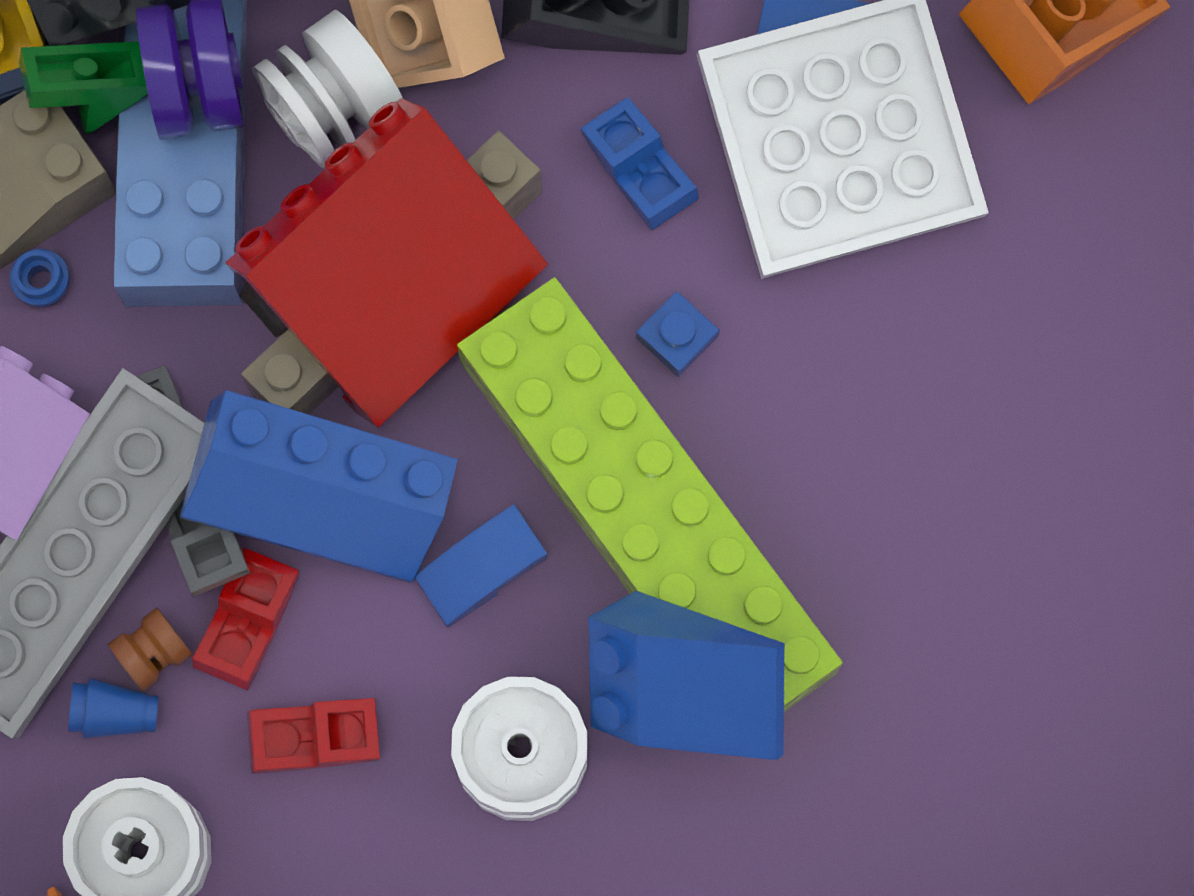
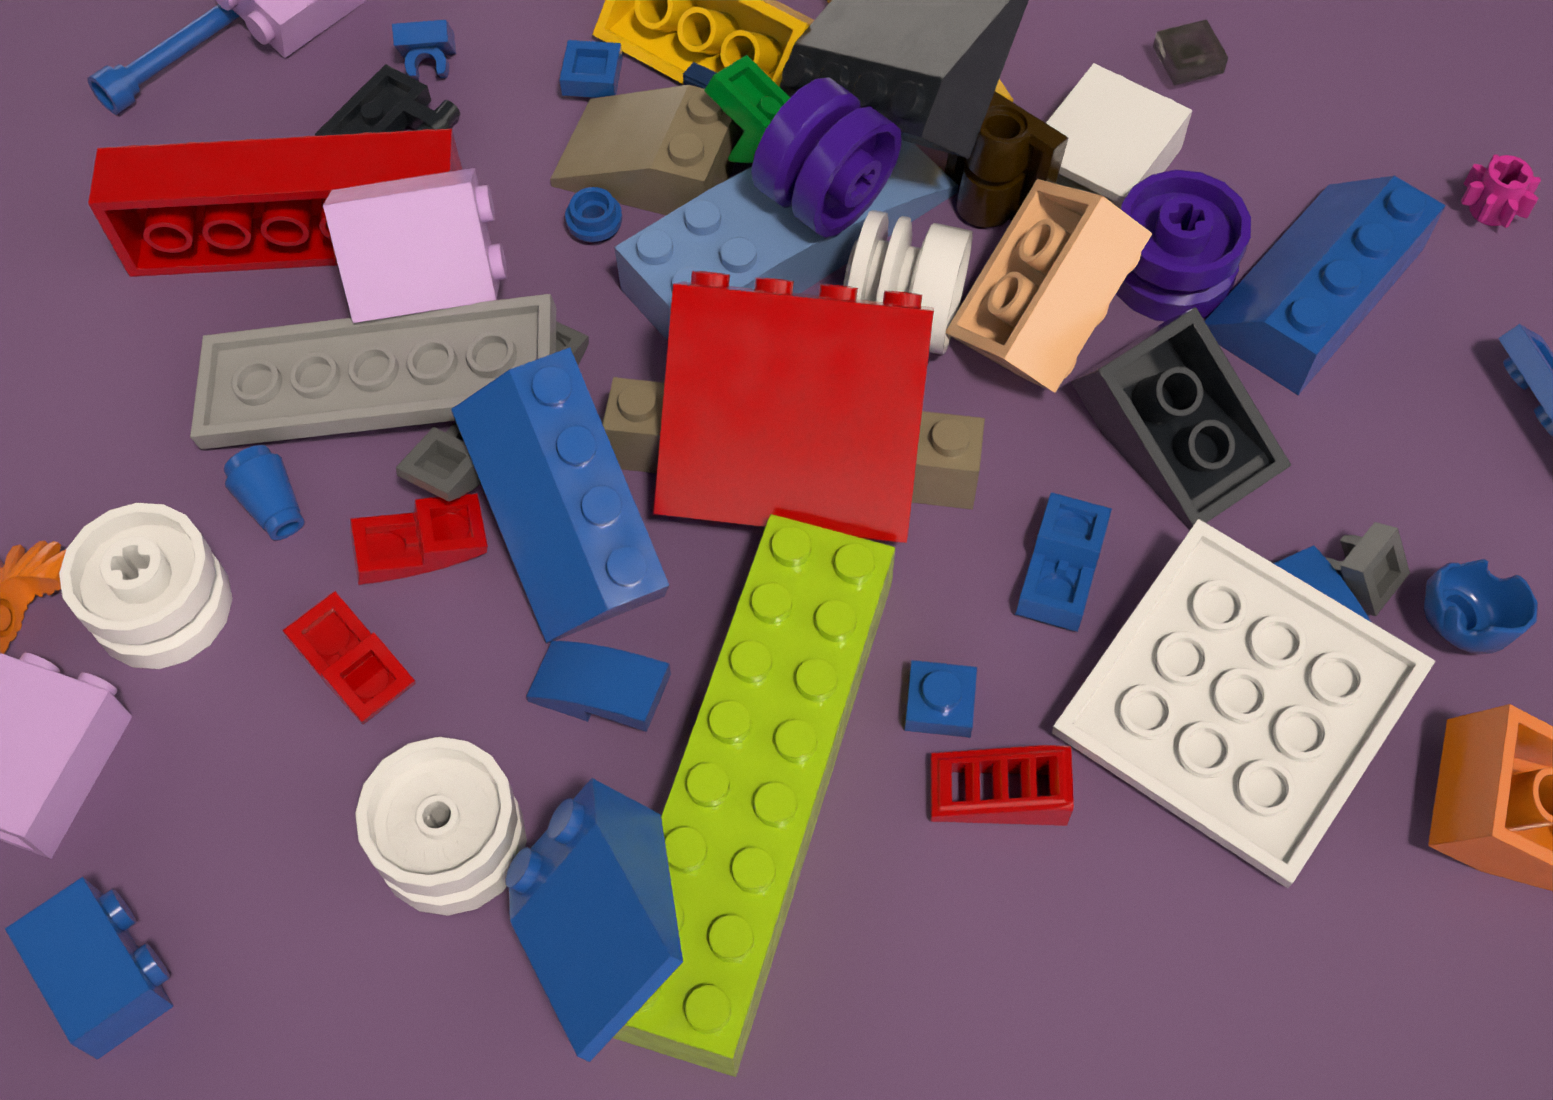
camera: 55 degrees right, 15 degrees down
(149, 649) = (336, 483): dark orange wheel -> none
(804, 302) = (1000, 762): none -> red slope

